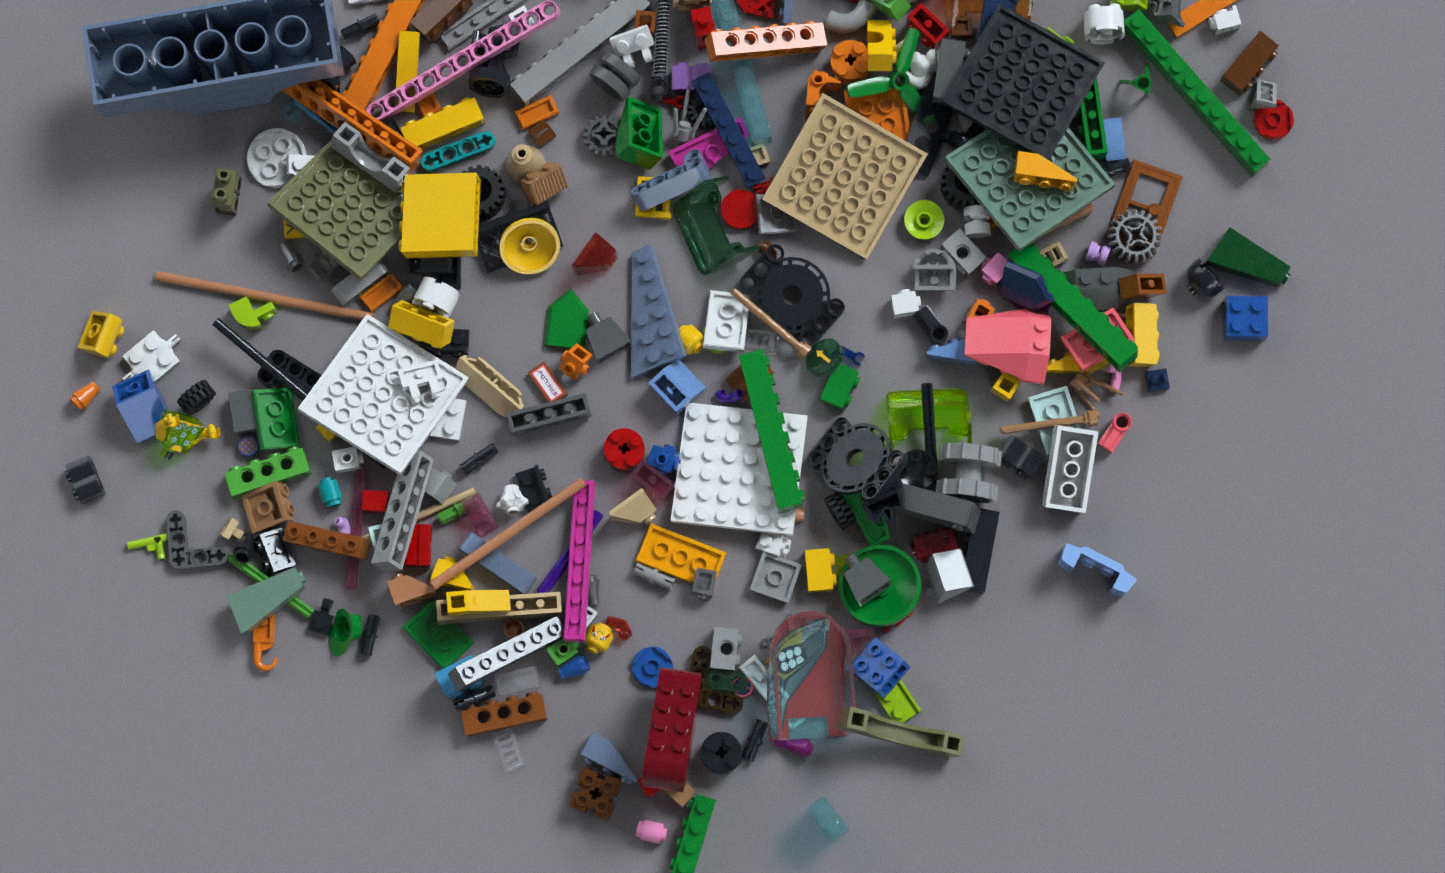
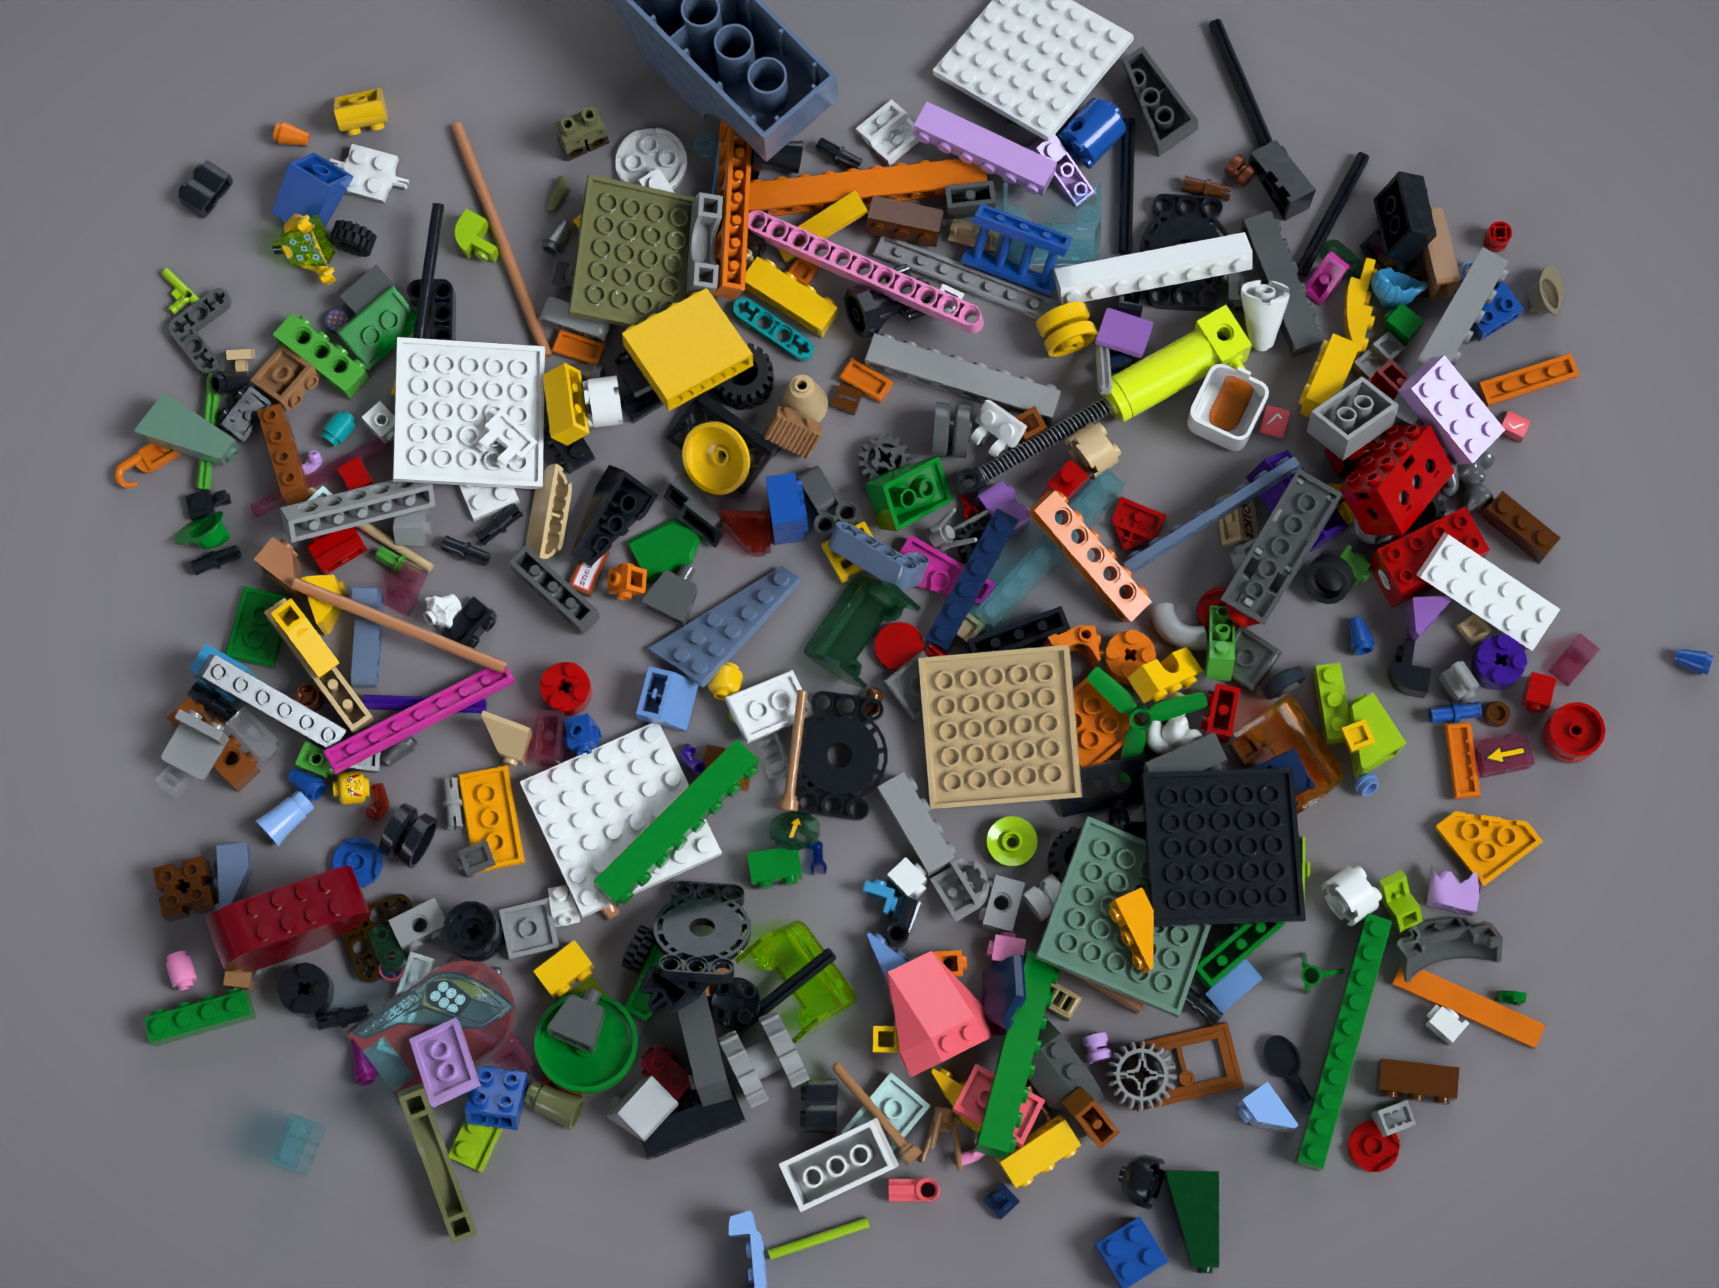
camera: 55 degrees right, 5 degrees down
(258, 236) = (558, 194): none -> olive bar
(474, 424) = (499, 524): none -> black pin
(501, 725) = (195, 745): none -> light grey bracket
(515, 337) = (614, 507): none -> black wedge
(555, 283) = (695, 509): none -> black slope
(589, 696) = (285, 817): none -> light blue plant
(597, 218) = (787, 508): none -> blue brick
(606, 194) = (825, 502): none -> dark grey piece
(659, 618) = (408, 835): none -> black wheel
(755, 602) = (468, 919): none -> black wheel
(788, 122) = (1022, 634): none -> black brick
(835, 685) = (444, 1062): none -> lavender plate
(871, 275) = (916, 824): none -> light grey brick
(900, 328) = (879, 890): none -> dark azure bracket
(907, 632) = (555, 1104): none -> olive plant
(1107, 513) = (818, 1238): none -> lime bar
(1184, 139) = (1286, 1063): none -> black piece
(1208, 170) = (1266, 1110): none -> light blue slope

